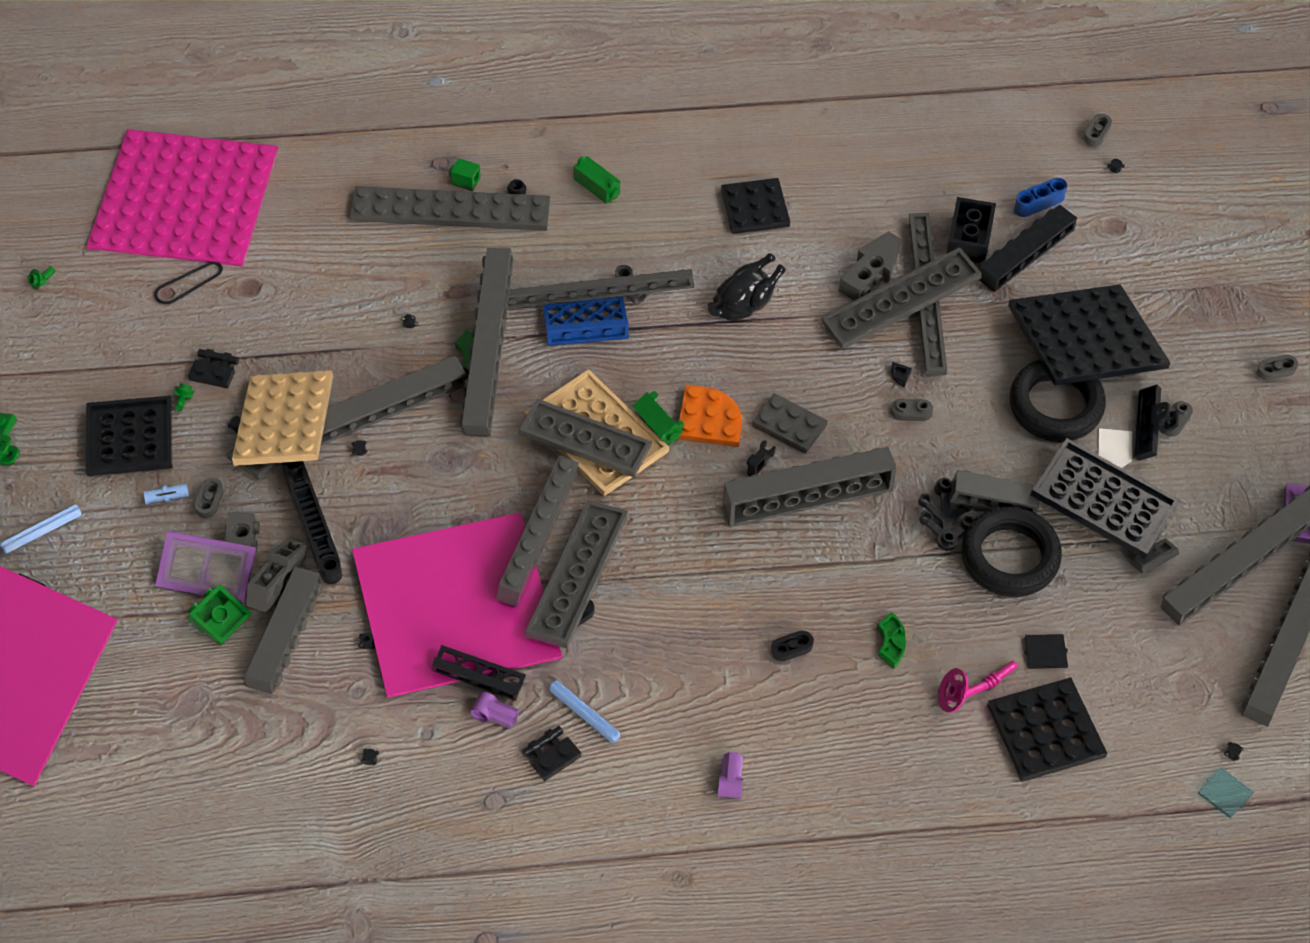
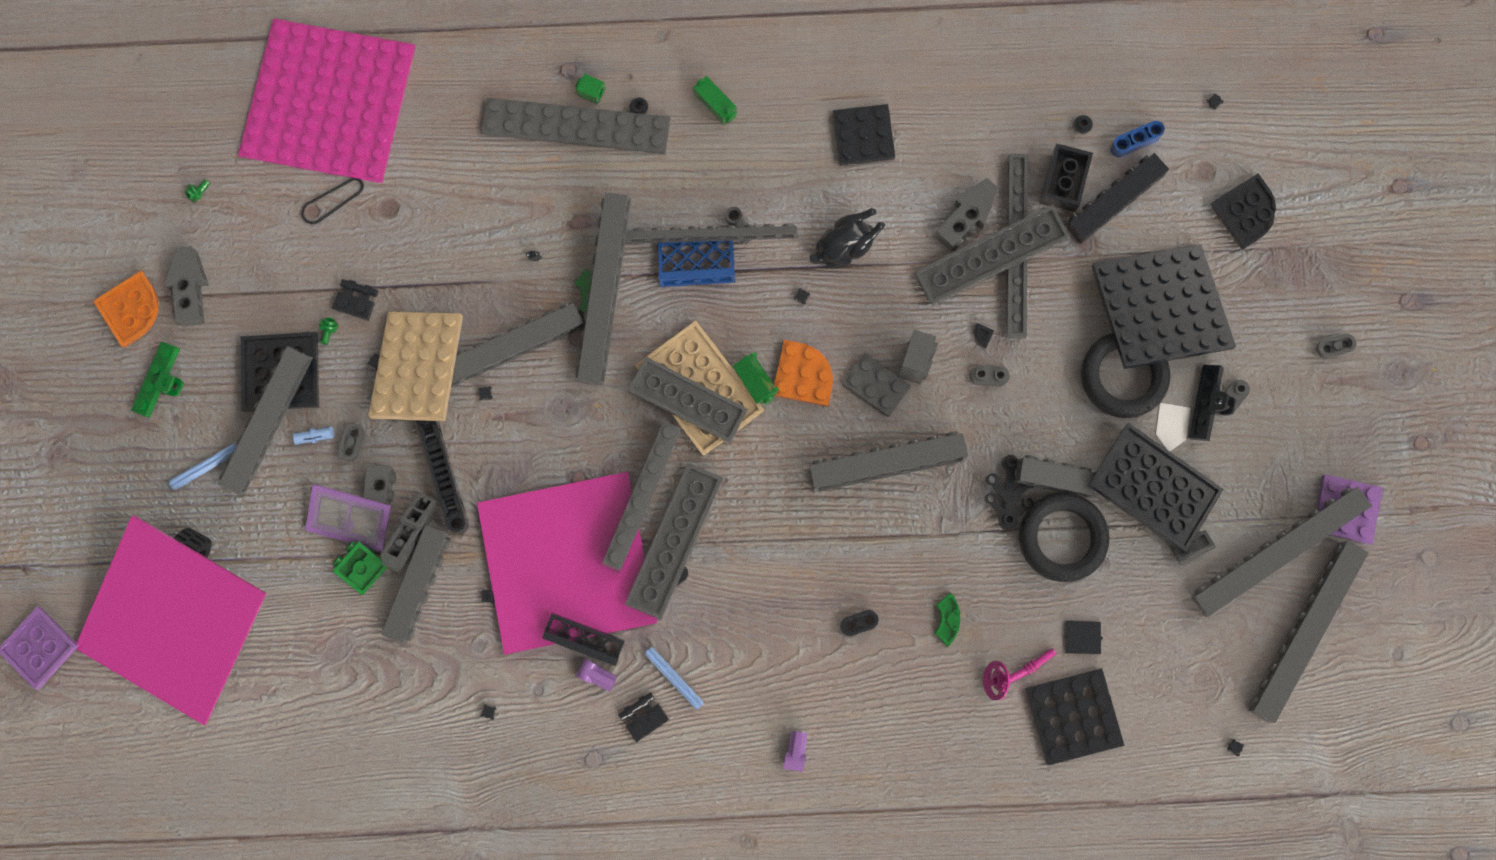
camera: 10 degrees right, 25 degrees up
(25, 361) = (187, 268): none -> dark grey brick
(113, 476) = (265, 420): none -> dark grey brick
(702, 346) = (802, 296): none -> black piece
(758, 461) = (842, 428): black plate -> none
(832, 384) = (918, 357): none -> dark grey brick
(982, 188) = (1083, 129): none -> black plate
(1097, 129) = (1202, 59): dark grey plate -> none
(1163, 254) = (1247, 211): none -> black plate
(1225, 792) = (1222, 786): clear light blue piece -> none

